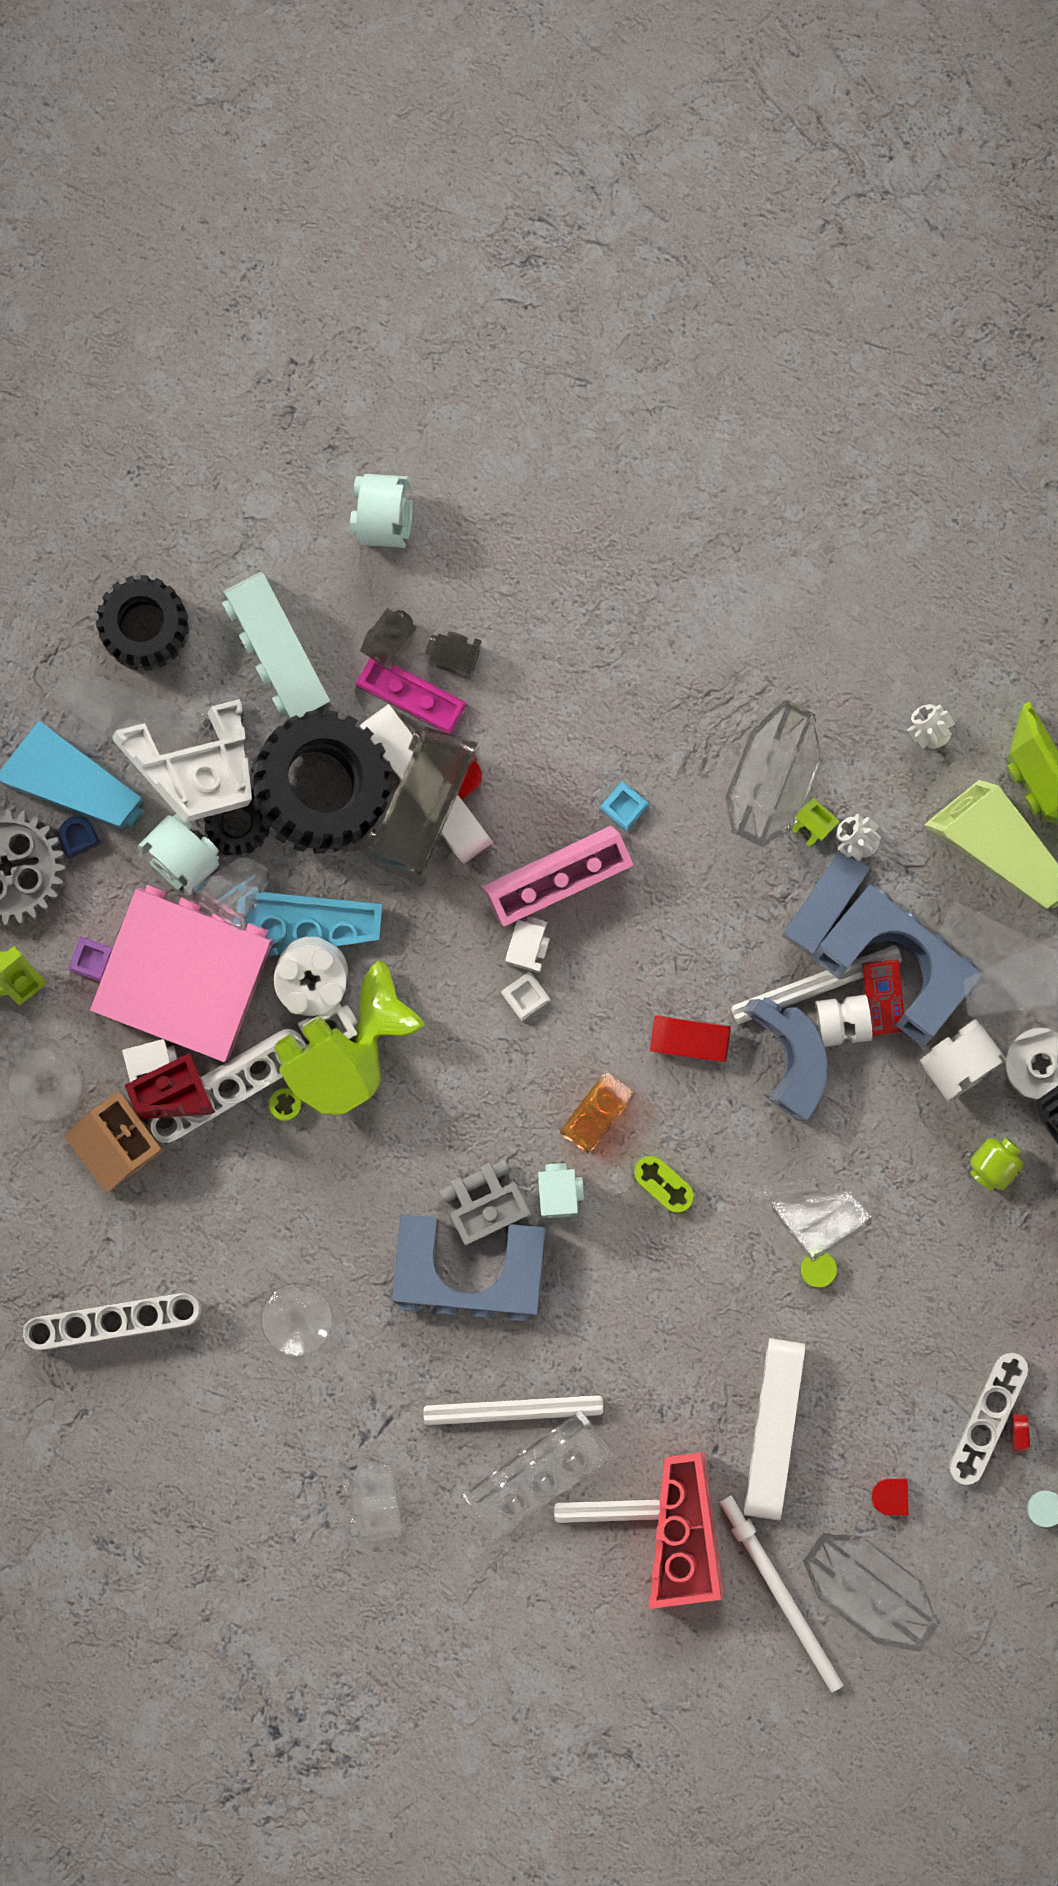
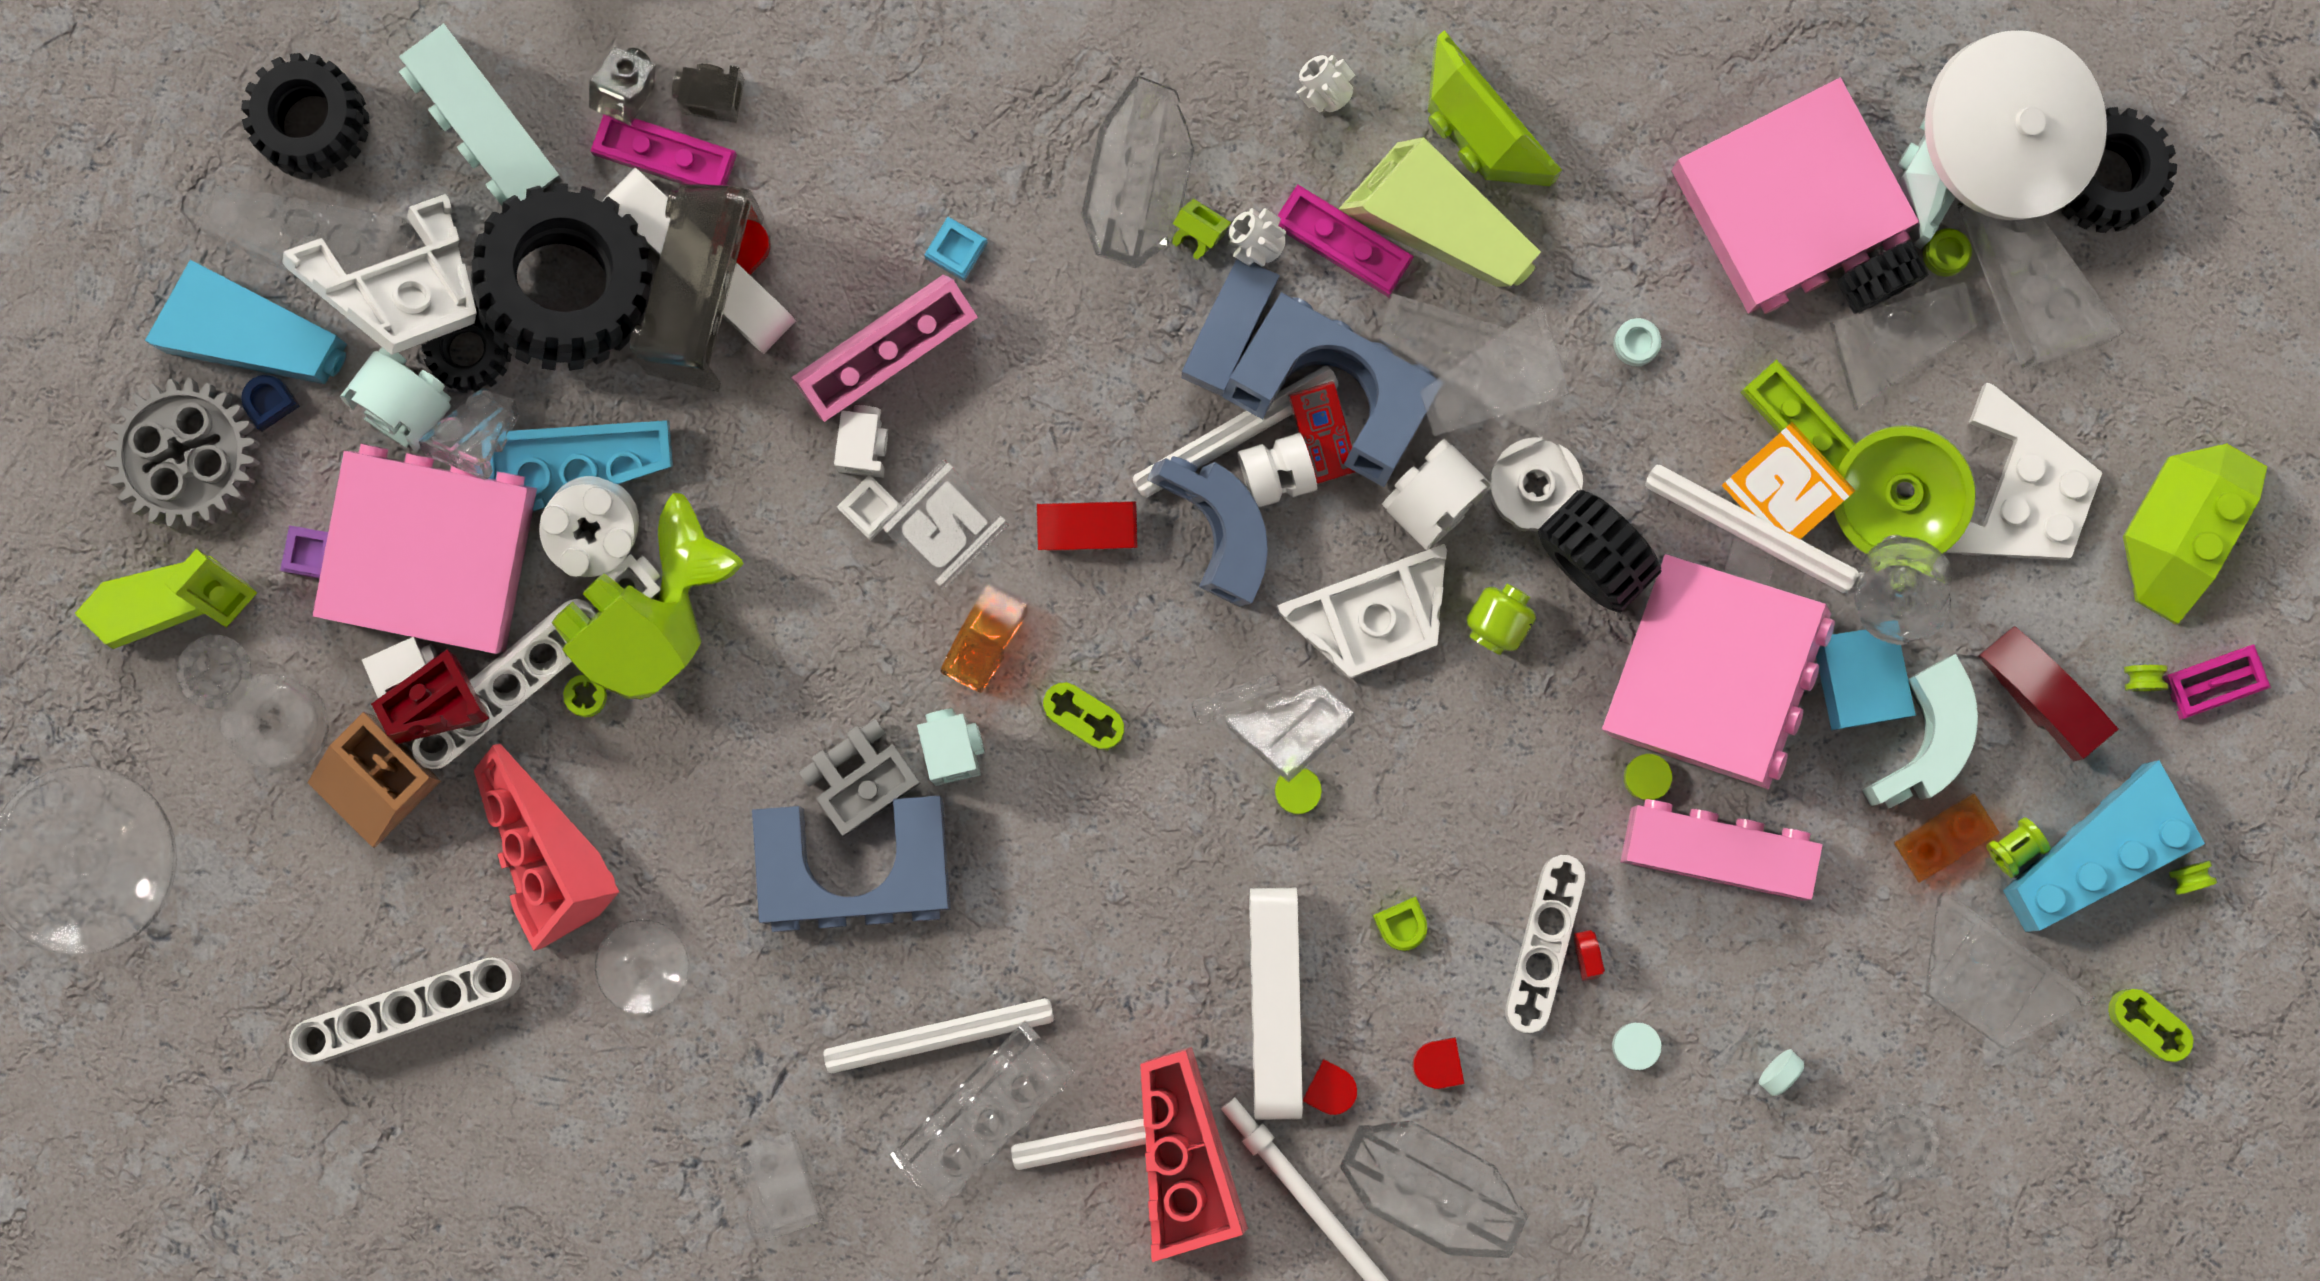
camera: 15 degrees left, 0 degrees up
(239, 1228) = (552, 864): none -> coral wedge
(580, 1019) = (943, 524): none -> clear tile
(806, 1502) = (1331, 1089): none -> red tile
(881, 1385) = (1402, 925): none -> lime tile
(900, 1144) = (1374, 614): none -> white wing
(924, 850) = (1343, 241): none -> dark pink tile

